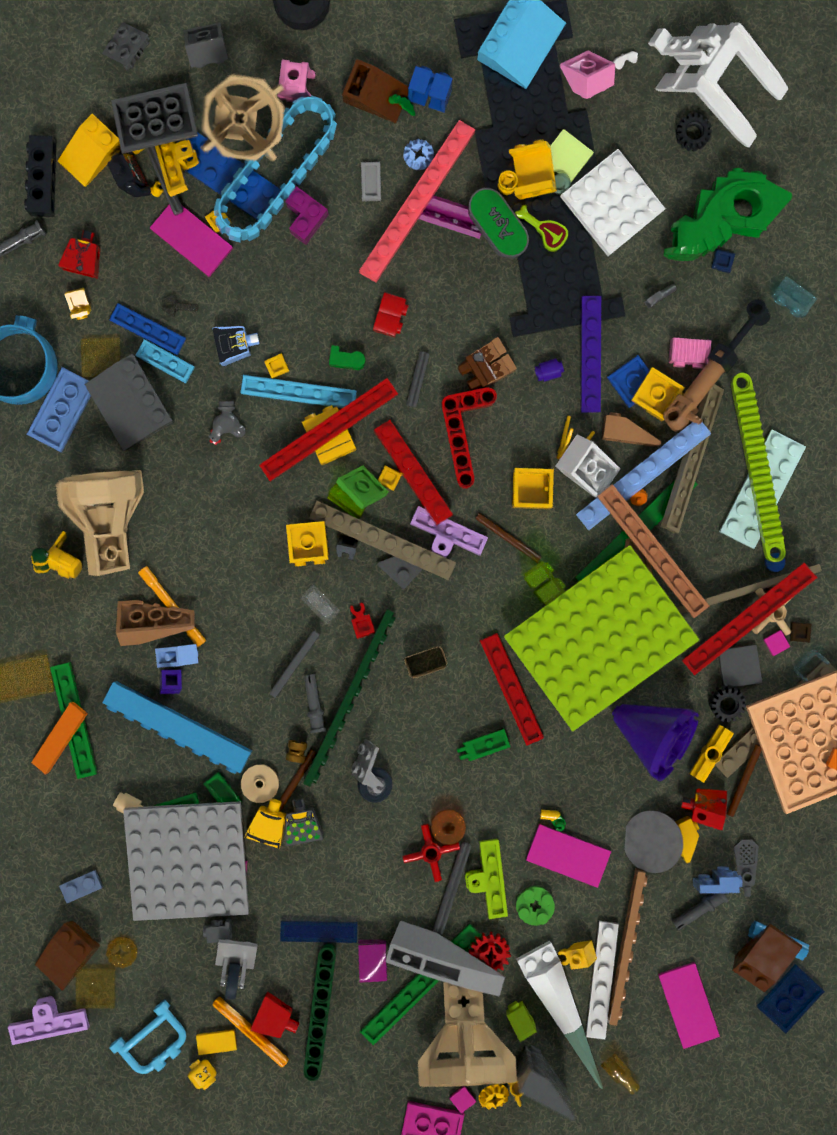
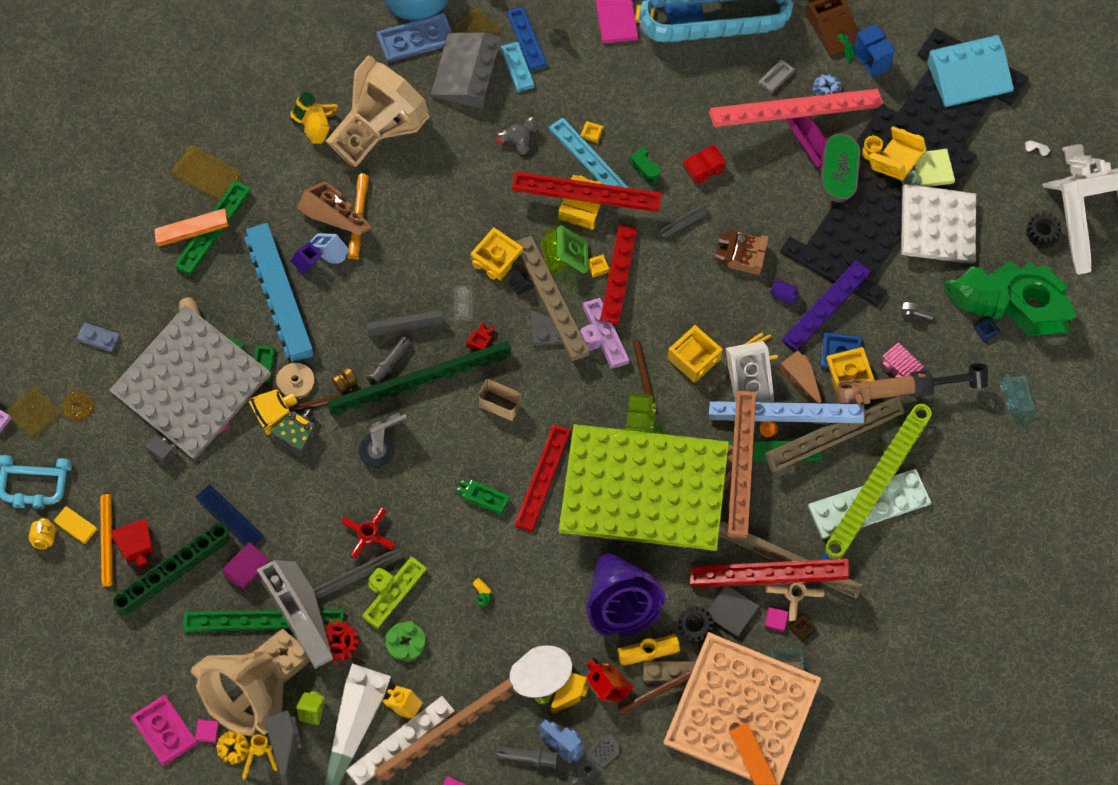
camera: 40 degrees right, 25 degrees down
(66, 954) = (39, 369): reddish brown slope -> none
(233, 343) = (576, 92): torso -> none
(235, 955) = (150, 477): light grey plate -> none
(309, 212) = (709, 60): magenta brick -> none
(455, 834) = (399, 517): clear orange piece -> none
(459, 432) = (678, 276): red beam -> none
(552, 232) = (874, 206): lime piece -> none
(568, 855) = (466, 629): dark pink tile -> none
(588, 74) = (999, 132): bright pink slope -> none

